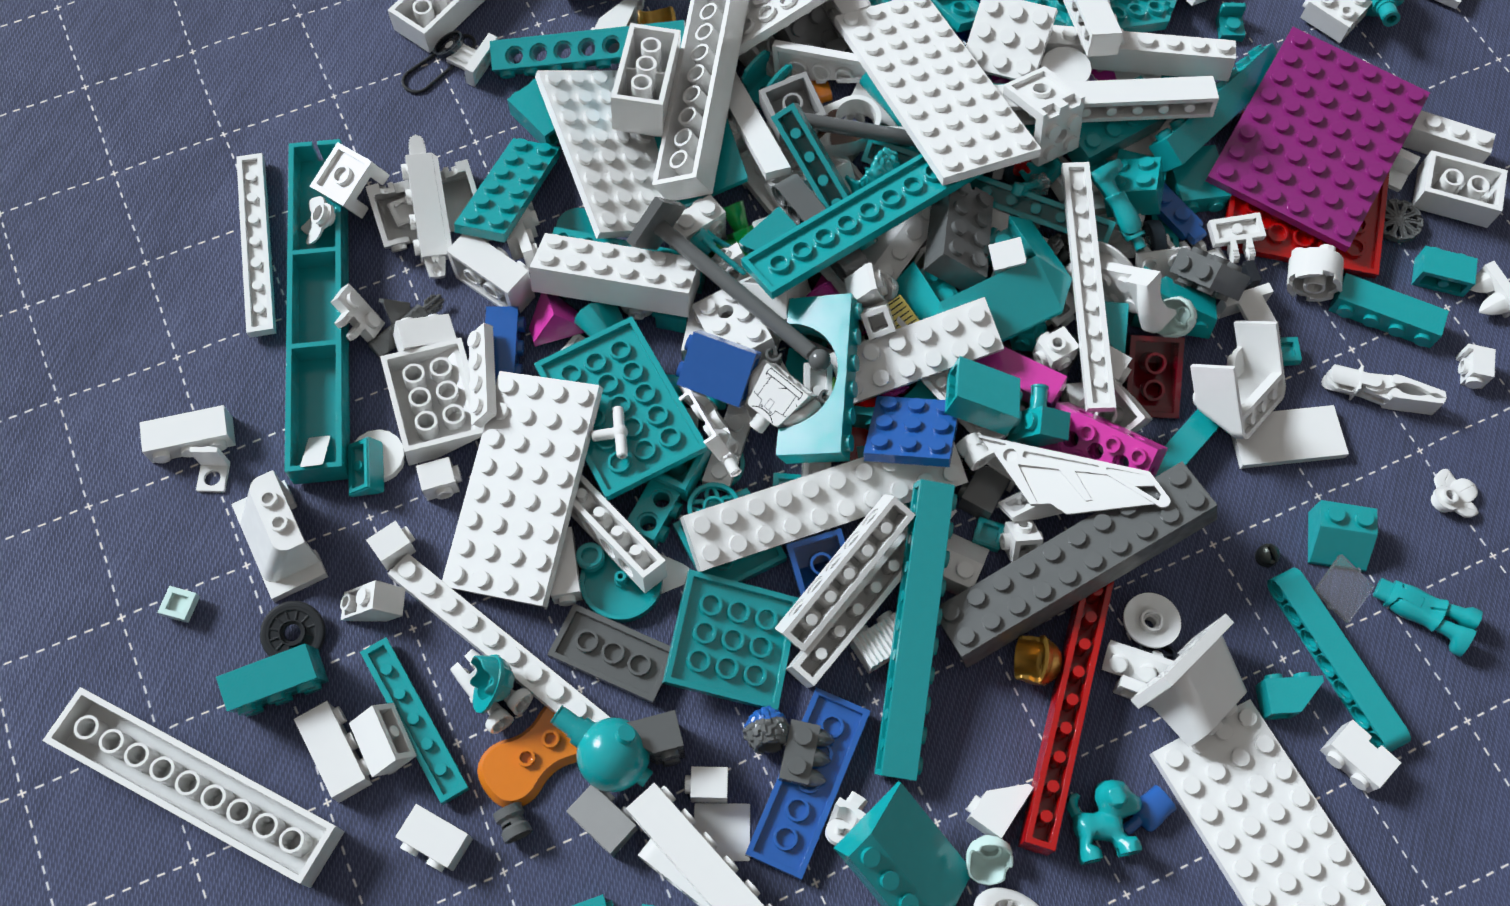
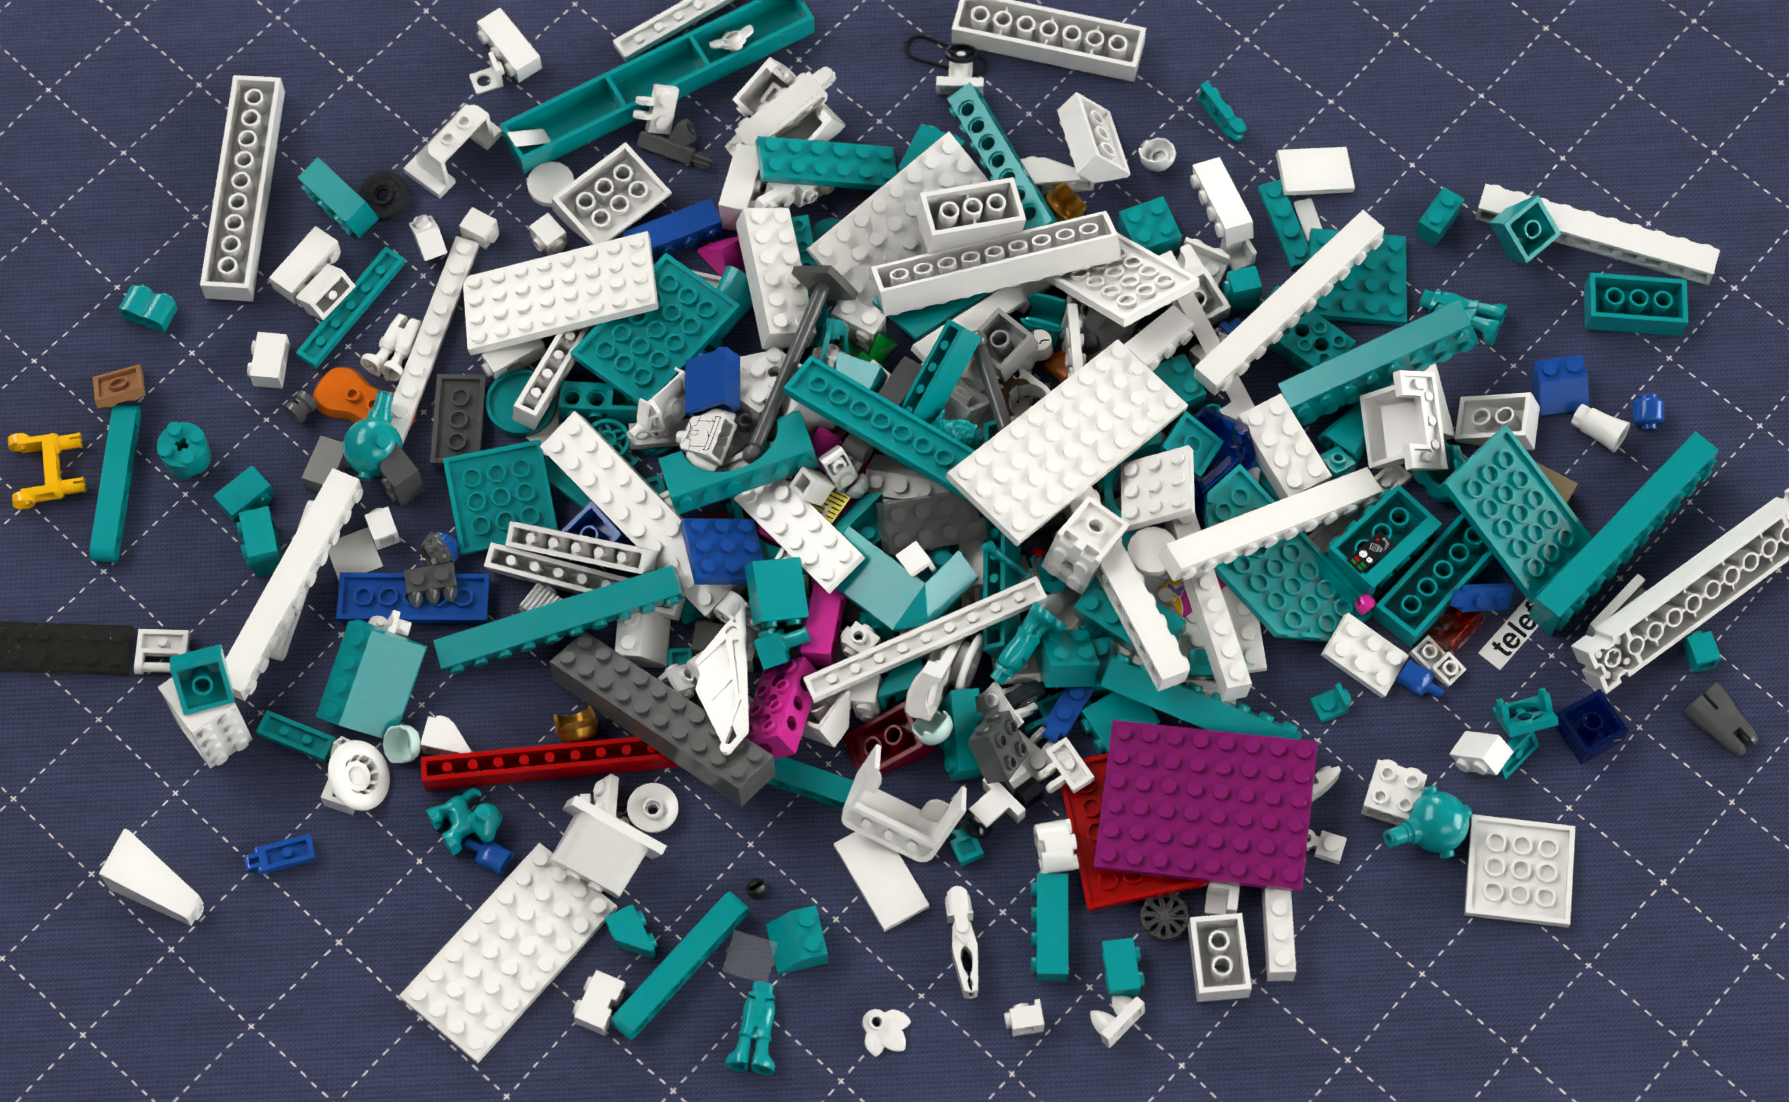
camera: 70 degrees right, 0 degrees up
(178, 604) = (373, 109): light aqua plate -> none
(345, 176) = (774, 38): white panel -> none
(365, 467) = (535, 180): teal slope -> none
(422, 331) = (666, 165): white brick -> none
(482, 375) = (633, 223): white plate -> none
(491, 682) = (397, 342): teal piece -> none
(590, 557) = (526, 368): teal tile -> none
(618, 432) = (626, 336): white piece -> none

